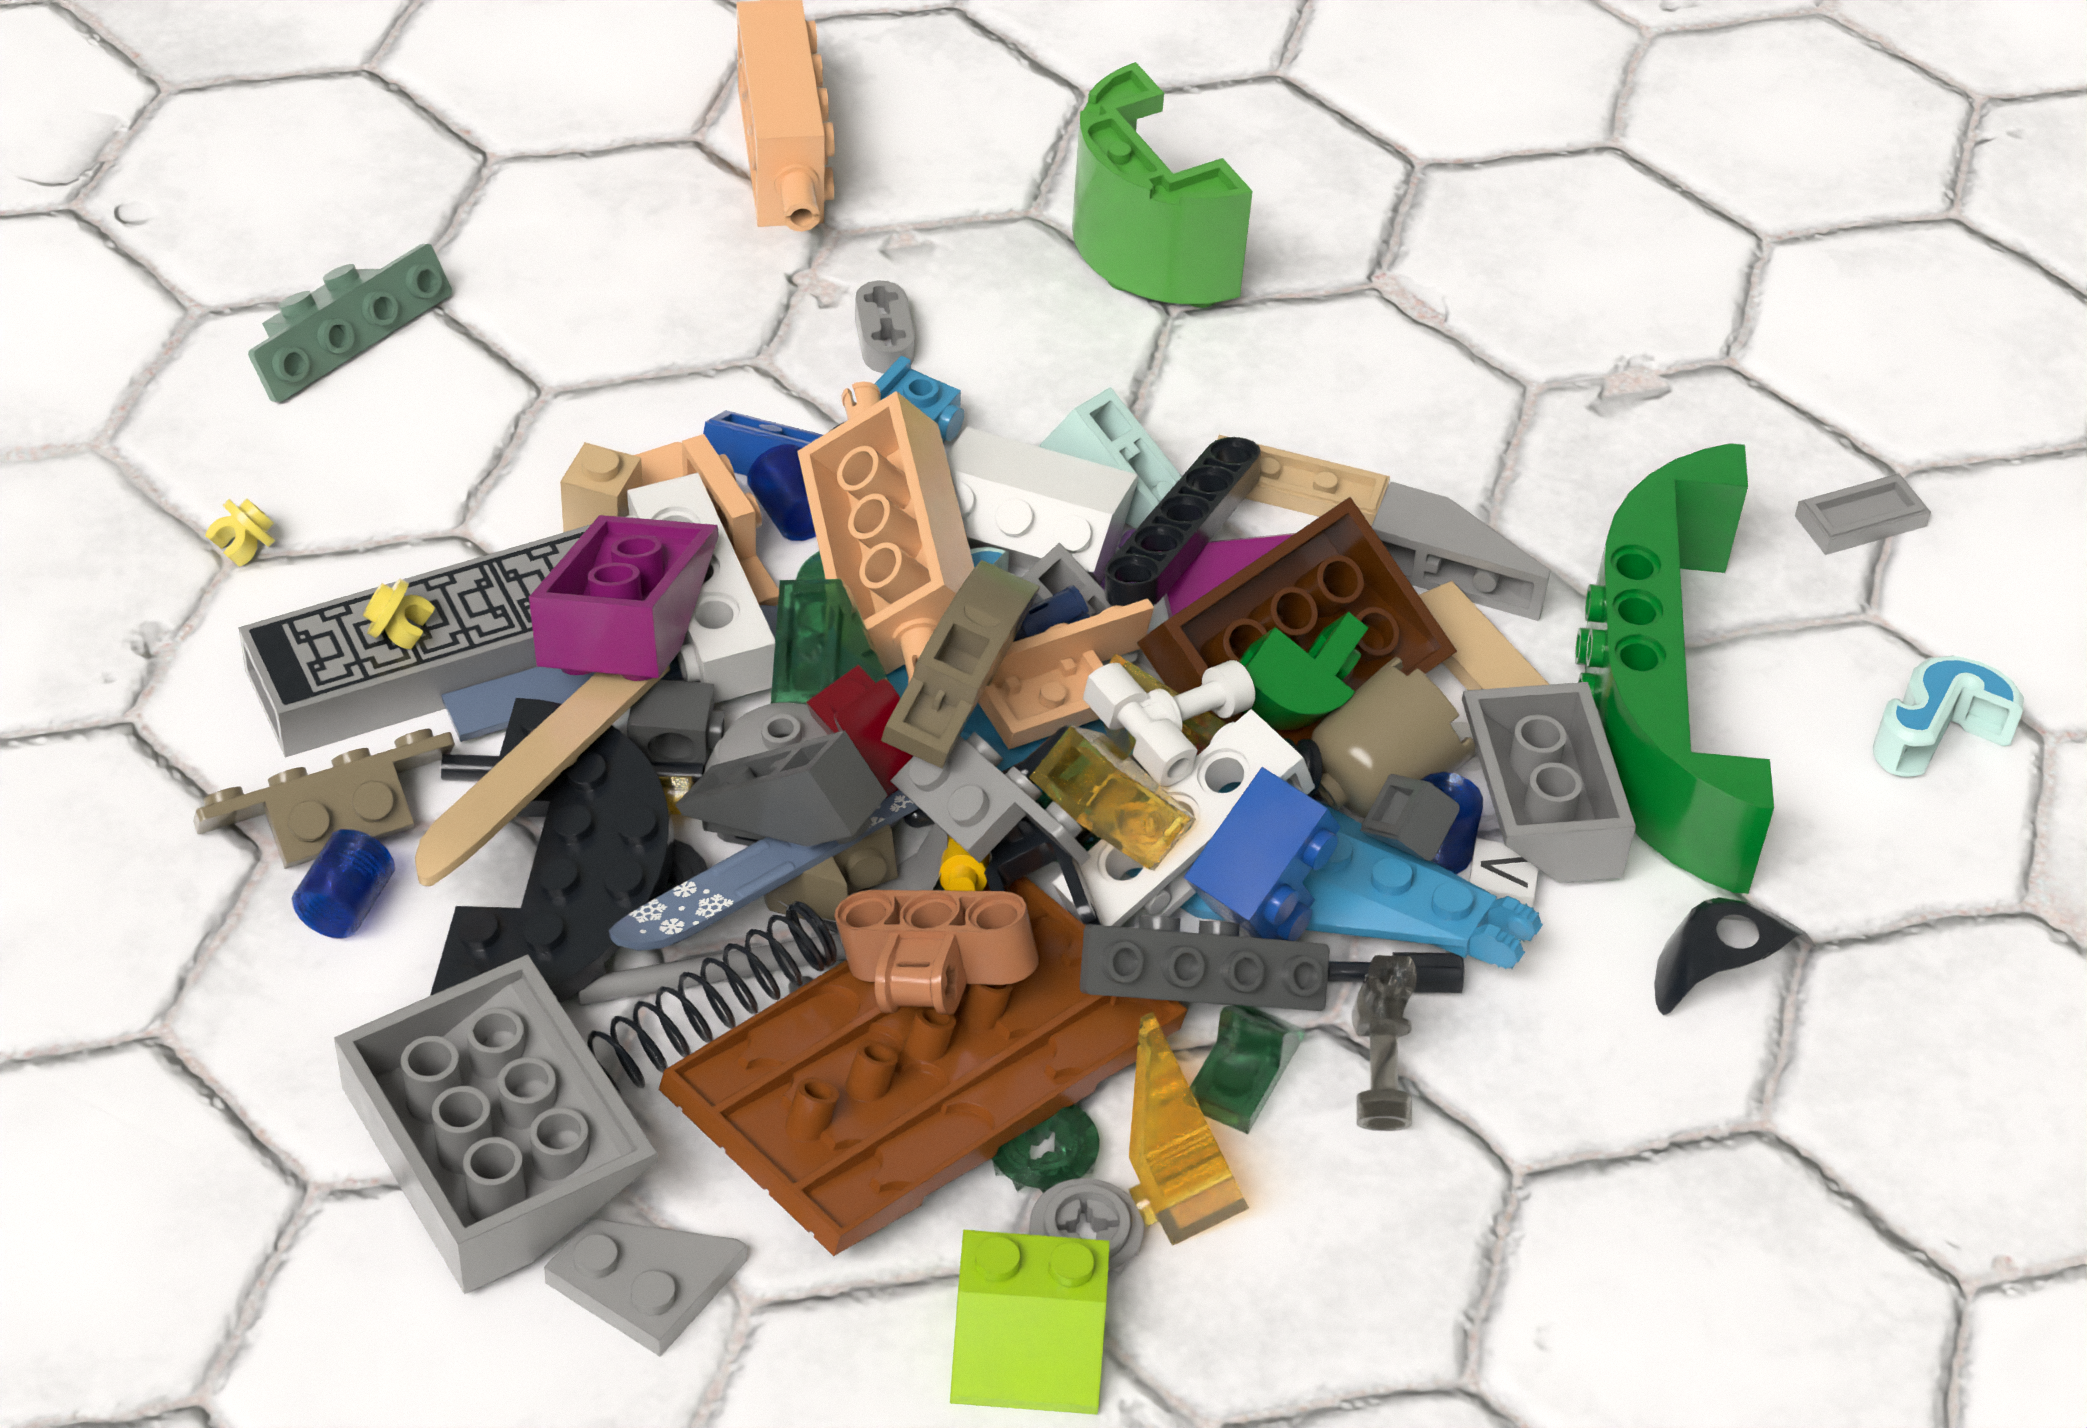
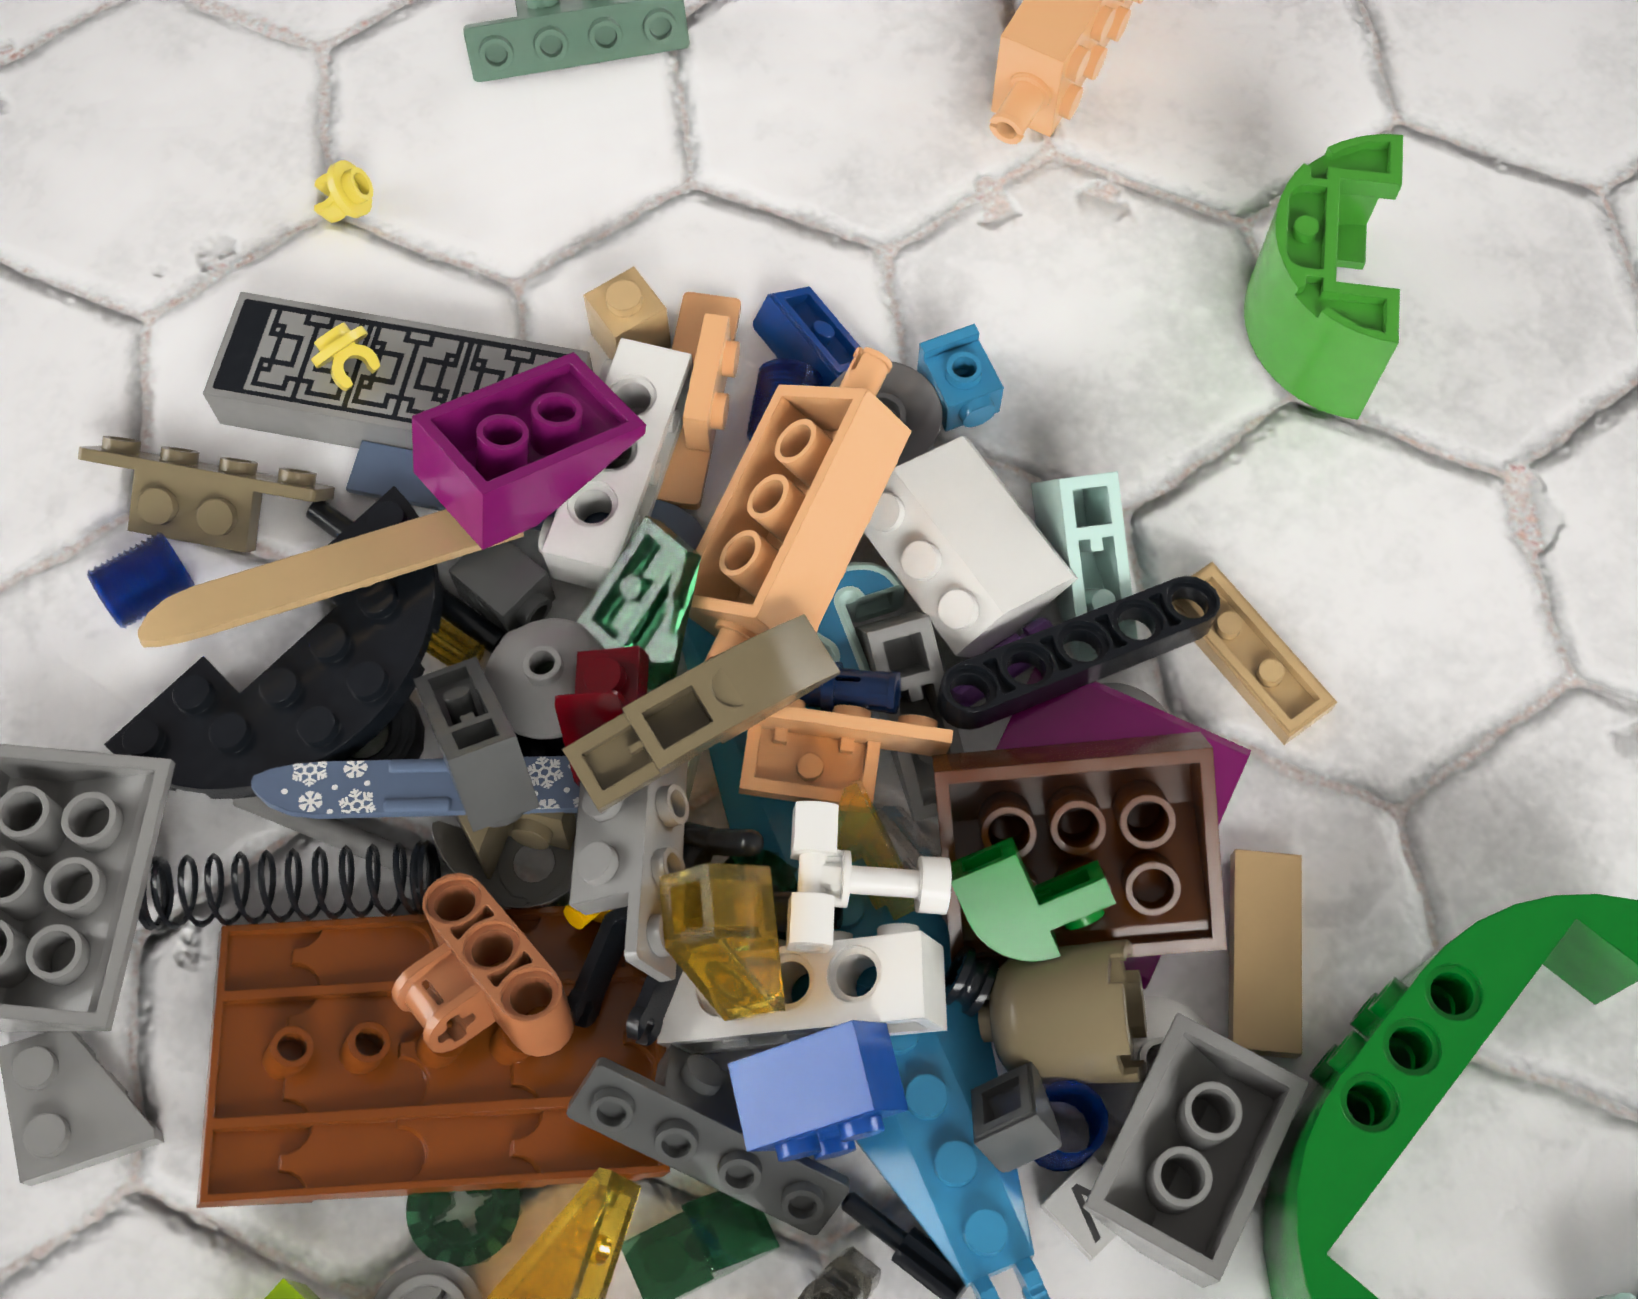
camera: 40 degrees right, 20 degrees up
(876, 327) = (998, 271): light grey beam -> none
(1445, 543) = (1318, 813): light grey slope -> none

